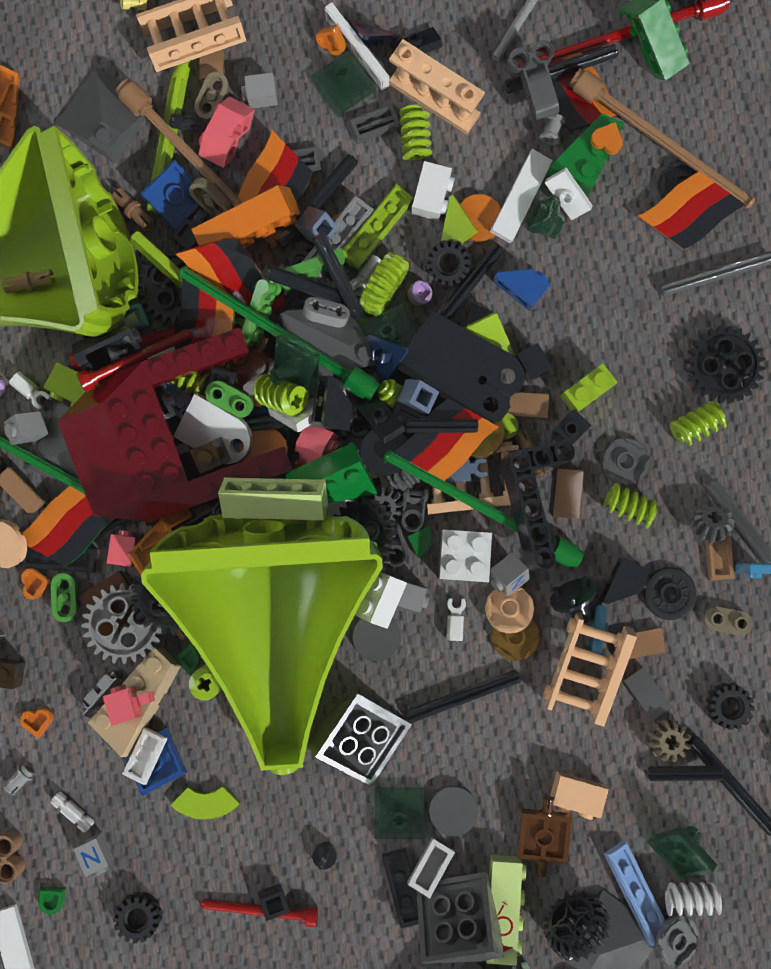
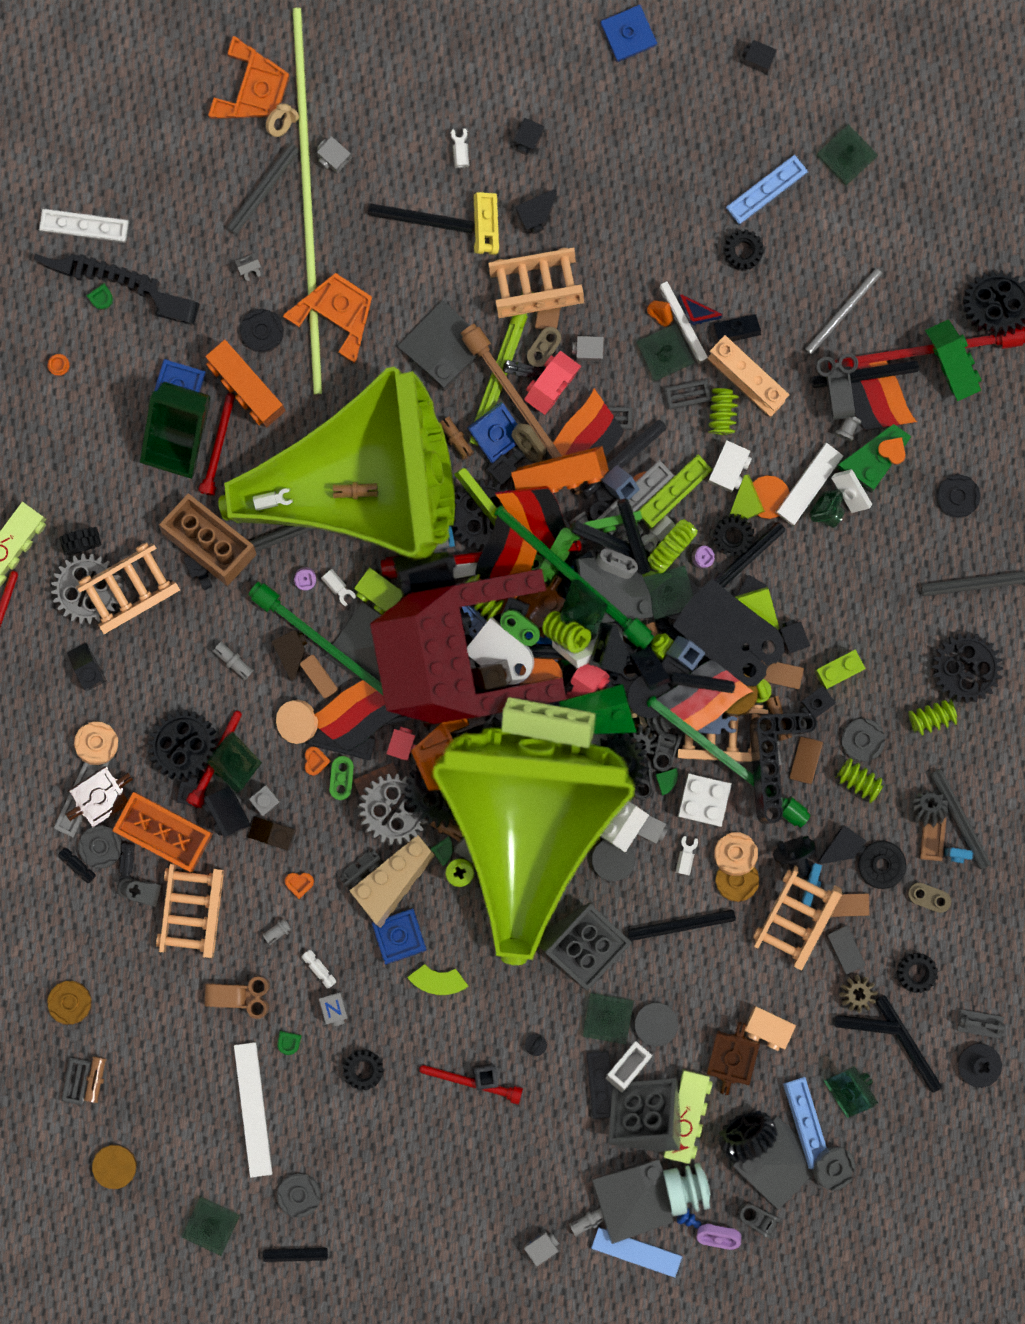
camera: 10 degrees right, 0 degrees up
(25, 427) = (332, 621): light grey brick -> none
(89, 378) = (405, 593): red piece -> none
(125, 704) = (388, 878): coral brick -> none
(144, 756) = (394, 928): white plate -> none
(387, 356) = (664, 612): dark blue piece -> none
(509, 574) = (740, 823): light grey brick -> none
(523, 285) = (797, 566): blue slope -> none
(691, 897) = (854, 1133): white piece -> none
(692, 205) = (961, 519): flag -> none

